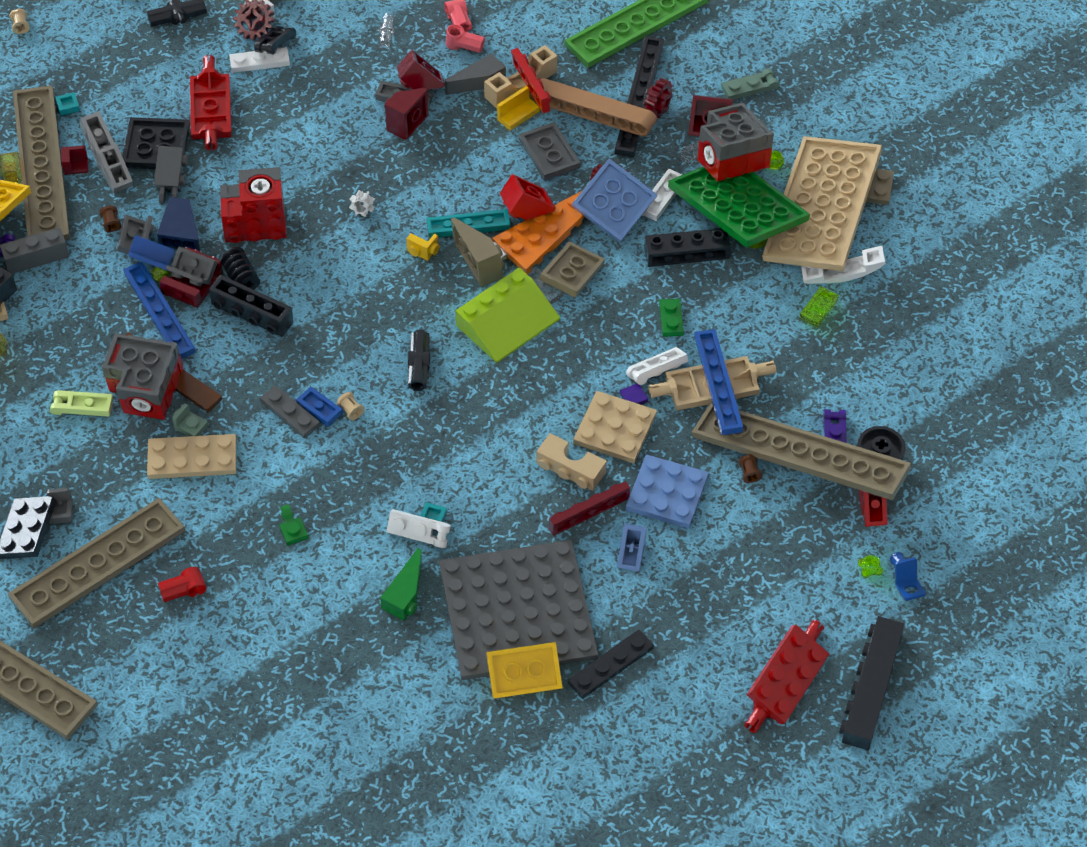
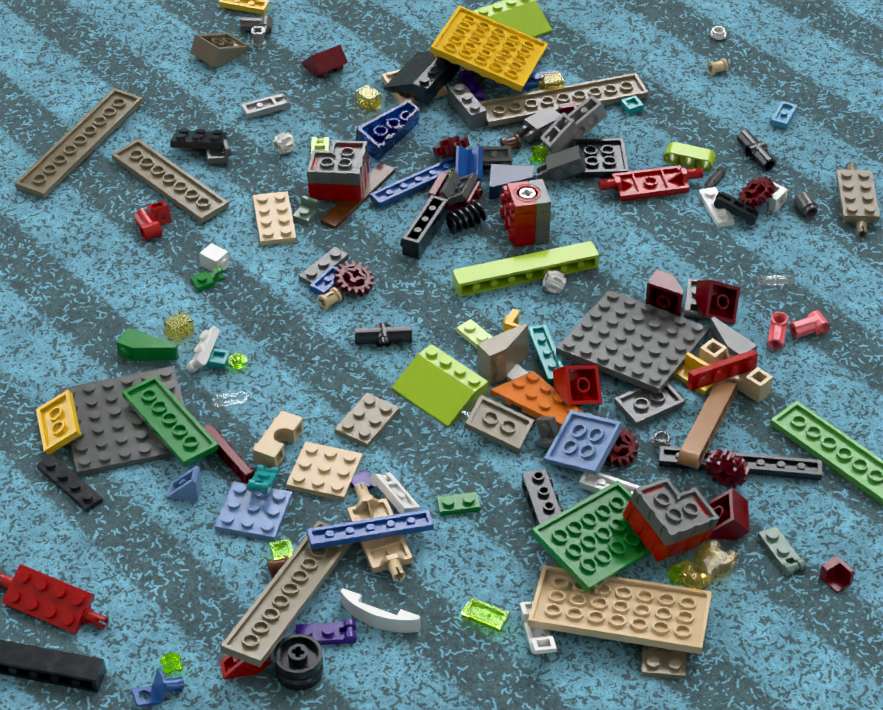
camera: 85 degrees right, 10 degrees down
(58, 436) = (284, 143): none -> white gear
(65, 333) = (388, 128): none -> clear blue wedge
(86, 186) = (538, 124): none -> hinge
(111, 270) = (448, 146): none -> dark red gear
(136, 194) = (539, 149): none -> clear neon green plate
(156, 572) = (160, 212): none -> red bracket
(173, 67) = (689, 156): none -> lime beam
(203, 47) = (716, 177): none -> dark grey axle
(261, 514) = (214, 256): none -> white brick
(325, 379) = (353, 279): none -> gear
(334, 228) = (524, 268): none -> lime brick
(376, 552) = (178, 326): none -> clear yellow brick
(434, 278) = (472, 332): none -> yellowish green plate
(437, 492) = (237, 361): none -> clear neon green plate
(462, 151) = (633, 341): none -> plate
(497, 507) = (230, 401): none -> clear beam
(539, 556) = (170, 421): none -> green plate
(544, 385) = (367, 420): none -> plate
(589, 232) = (548, 430): none -> dark grey bracket
(602, 149) = (661, 438): none -> clear smoke plate
(635, 475) = (263, 479): none -> teal plate
(727, 466) = (281, 548): none -> clear neon green plate
(781, 50) = (836, 574): none -> dark red panel
(782, 140) = (709, 564): none -> clear yellow hips
(807, 406) = (402, 622): none -> white slope

